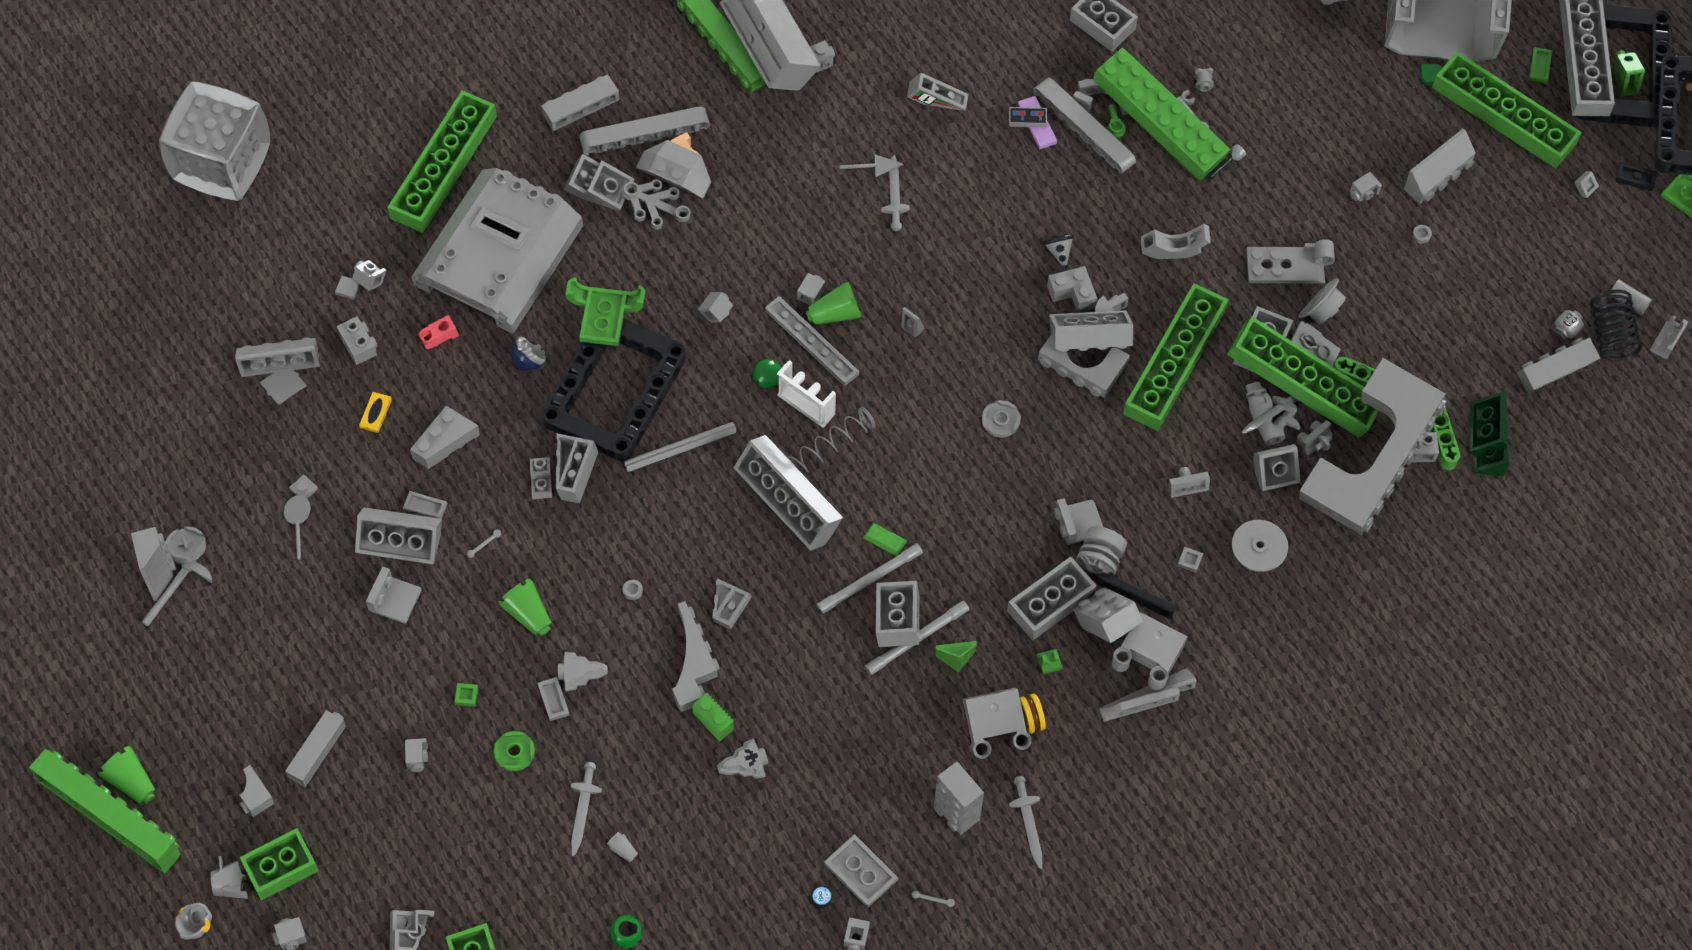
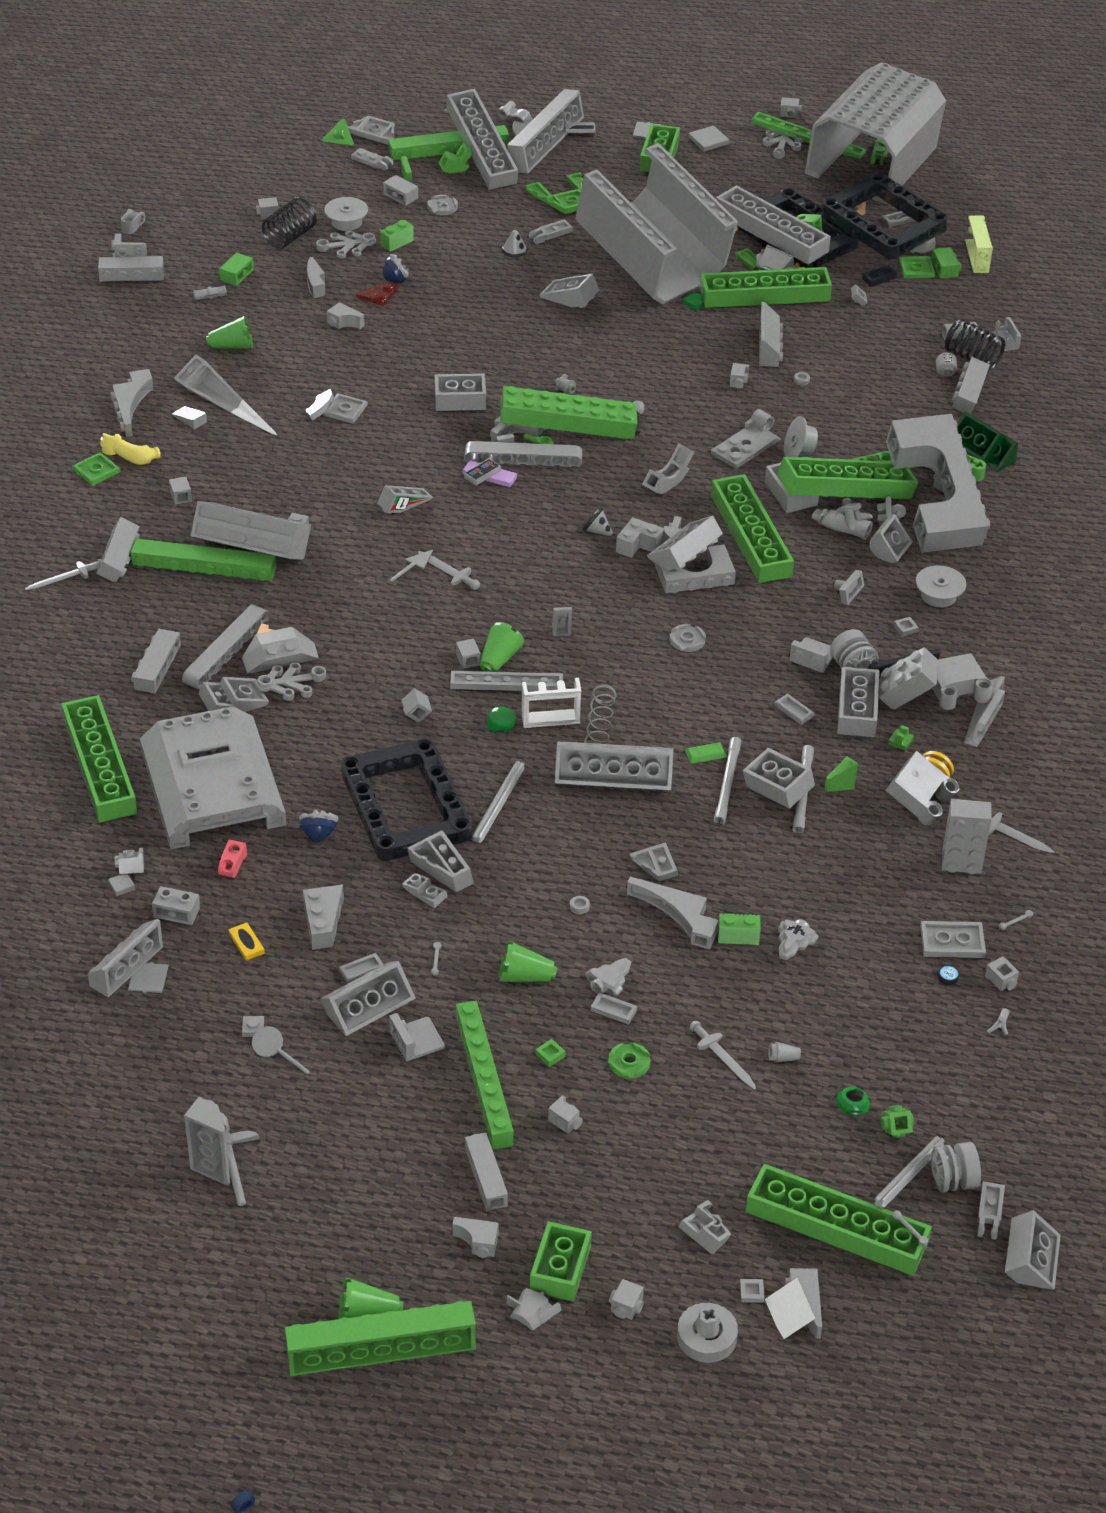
camera: 45 degrees left, 20 degrees down
(193, 921) = (544, 1353): light grey hair -> none
(400, 671) = (484, 1075): none -> bright green brick
(603, 310) = (347, 752): bright green piece -> none
(1001, 559) = (794, 709): none -> light grey tile
(1547, 90) = (775, 259): none -> light grey torso

